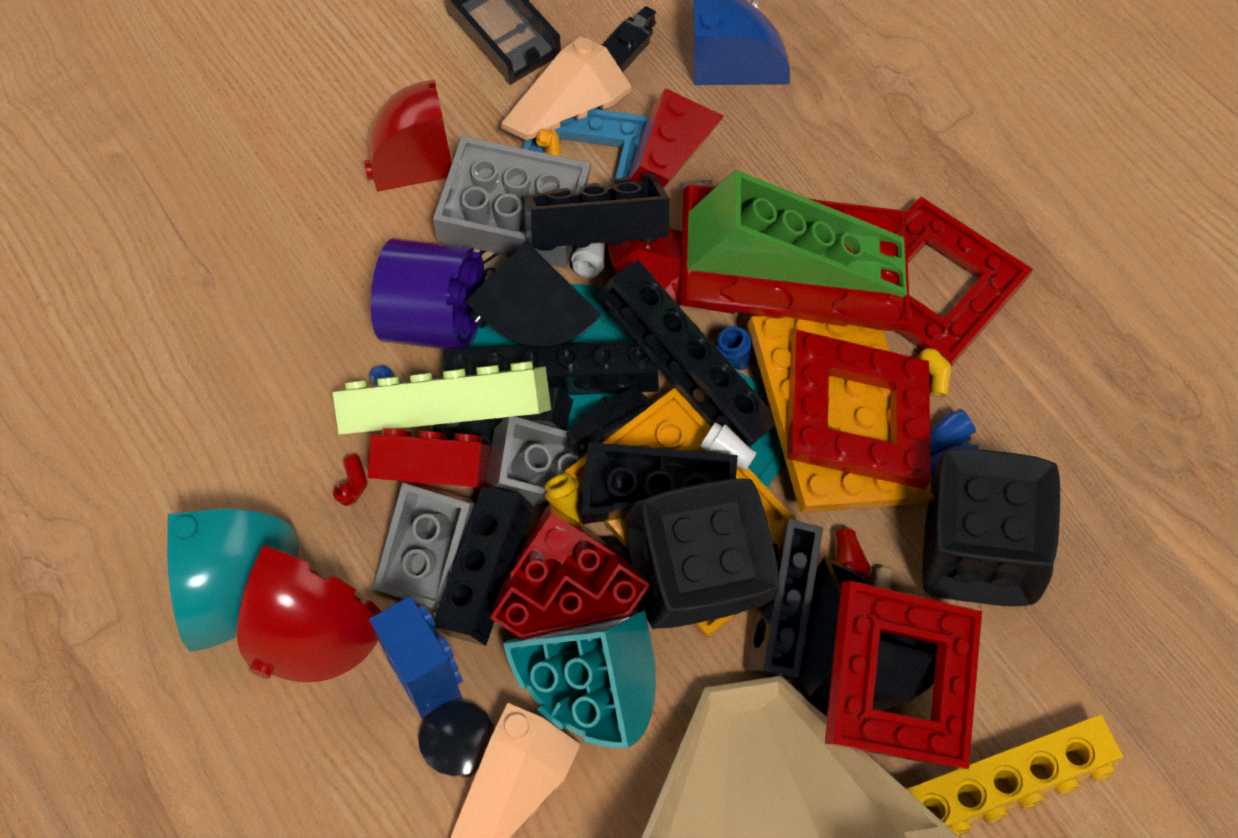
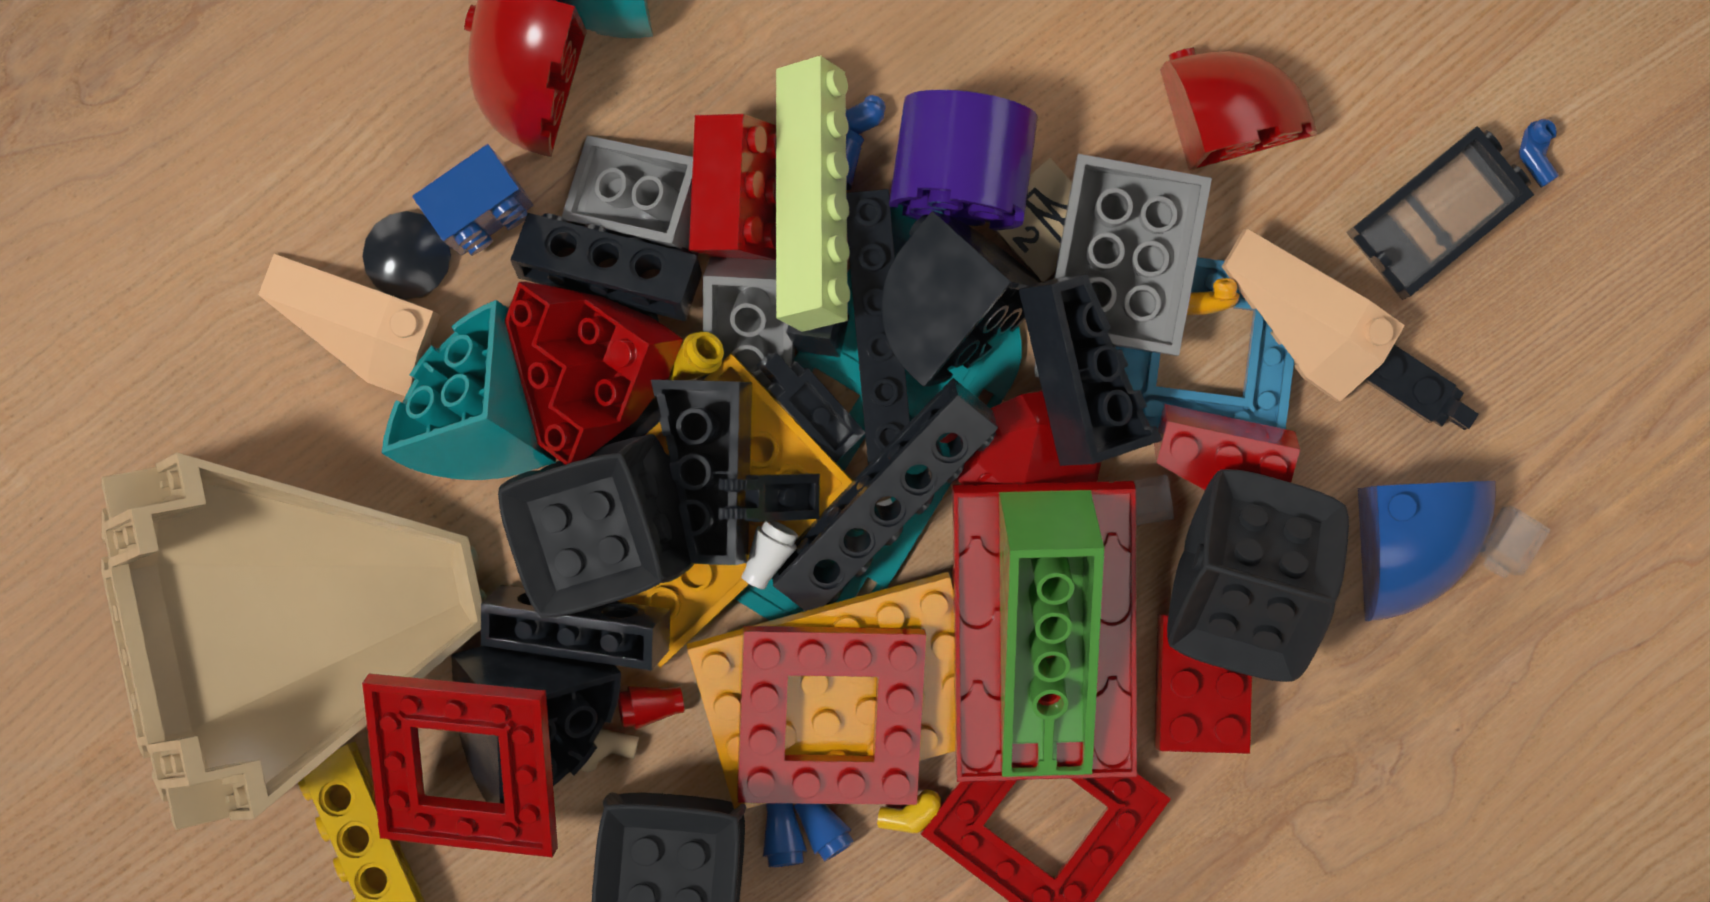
camera: 80 degrees right, 25 degrees up
(355, 484) = (721, 96): red arm -> none
(683, 429) = (774, 497): none -> black hinge
(735, 347) = (916, 547): blue cone -> none
(757, 109) = (1258, 575): none -> black piece
(836, 167) = (1199, 703): none -> red brick

